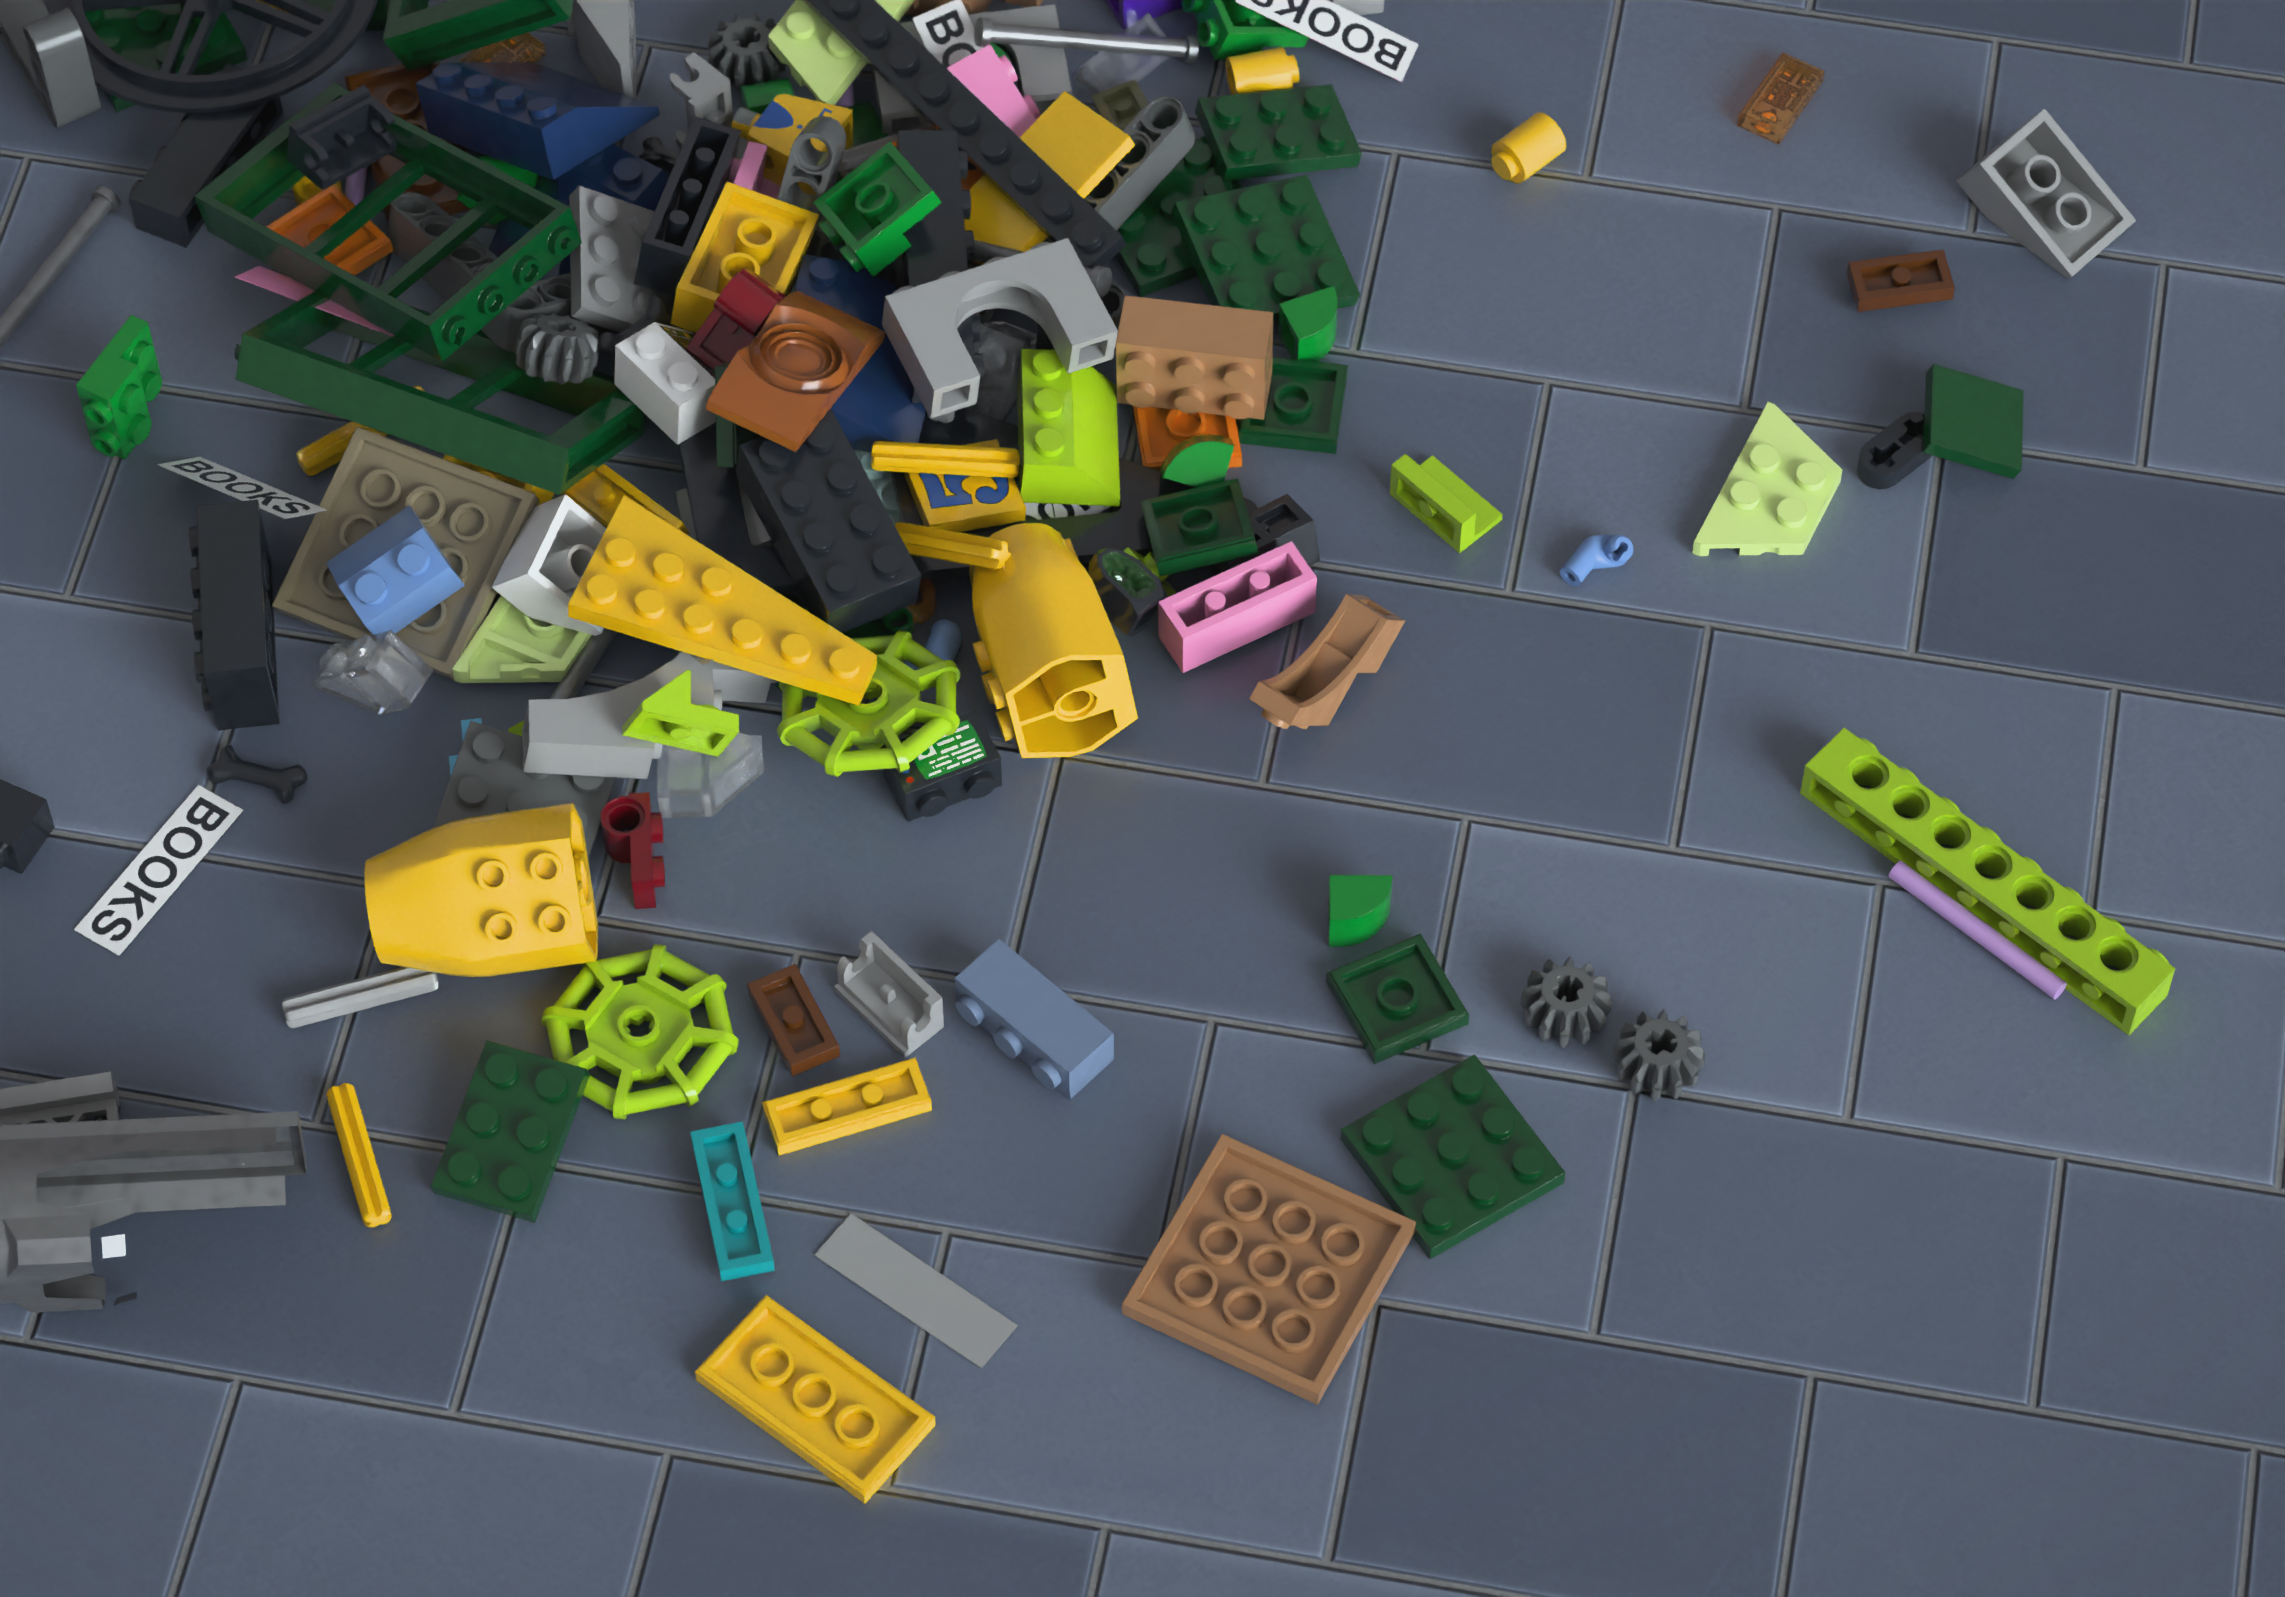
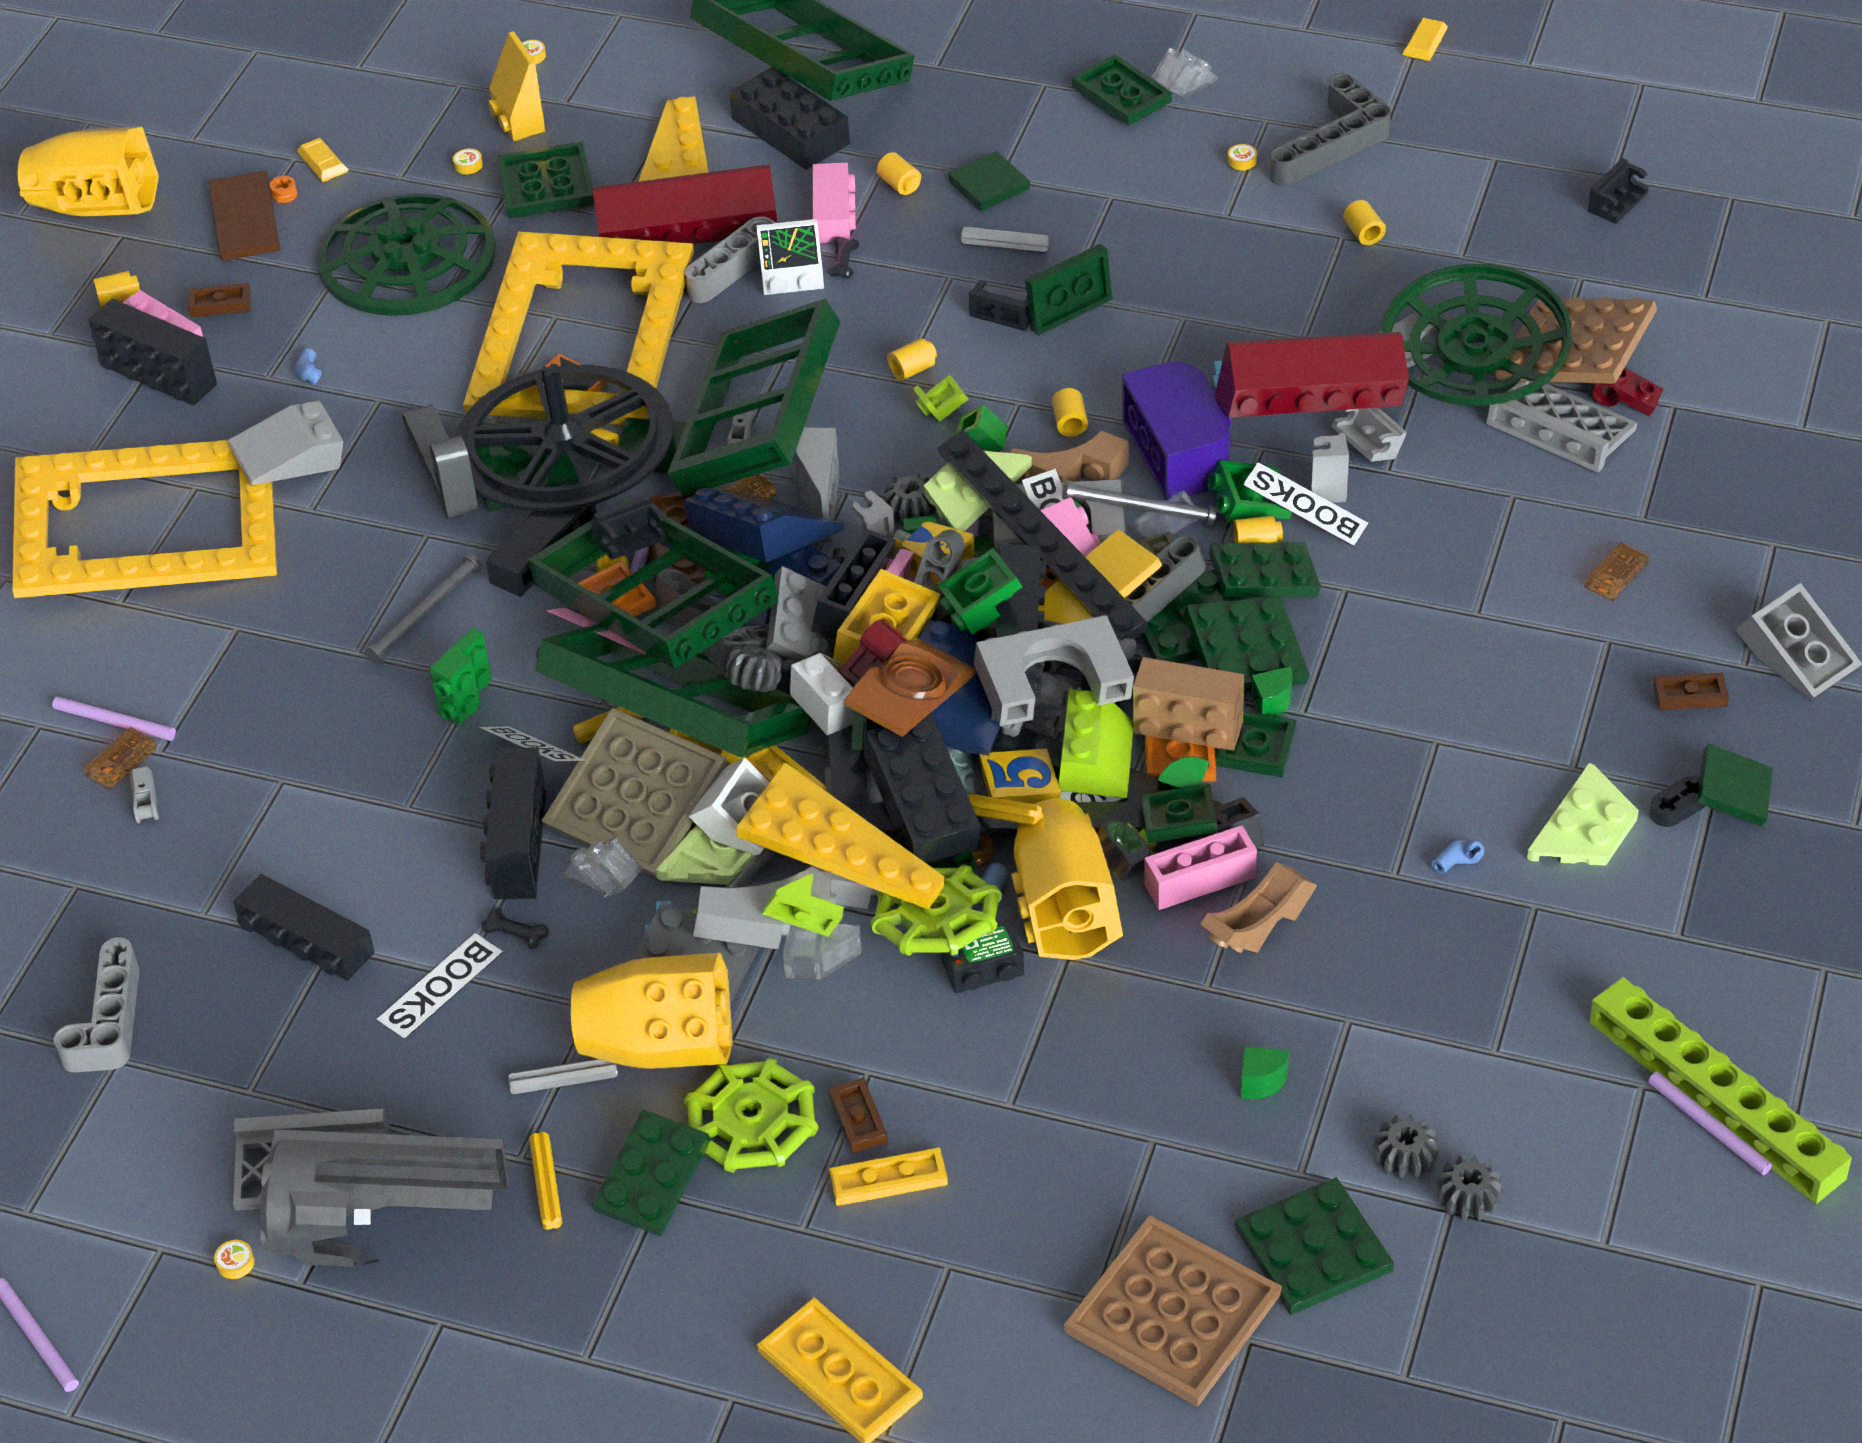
camera: 10 degrees right, 10 degrees down
(394, 573) = (625, 804): medium blue slope -> none
(637, 844) = (762, 988): dark red plate -> none
(732, 1201) = (798, 1232): teal plate -> none
(890, 996) = (927, 1104): light grey hinge -> none
(916, 1290) = (921, 1305): light grey sticker -> none
(945, 459) = (1008, 756): yellow axle -> none
(1033, 1020) = (1025, 1128): sand blue brick -> none
(1397, 998) = (1286, 1136): dark green tile -> none
(1442, 501) = (1352, 811): lime panel -> none
(1527, 148) = (1436, 590): yellow brick -> none

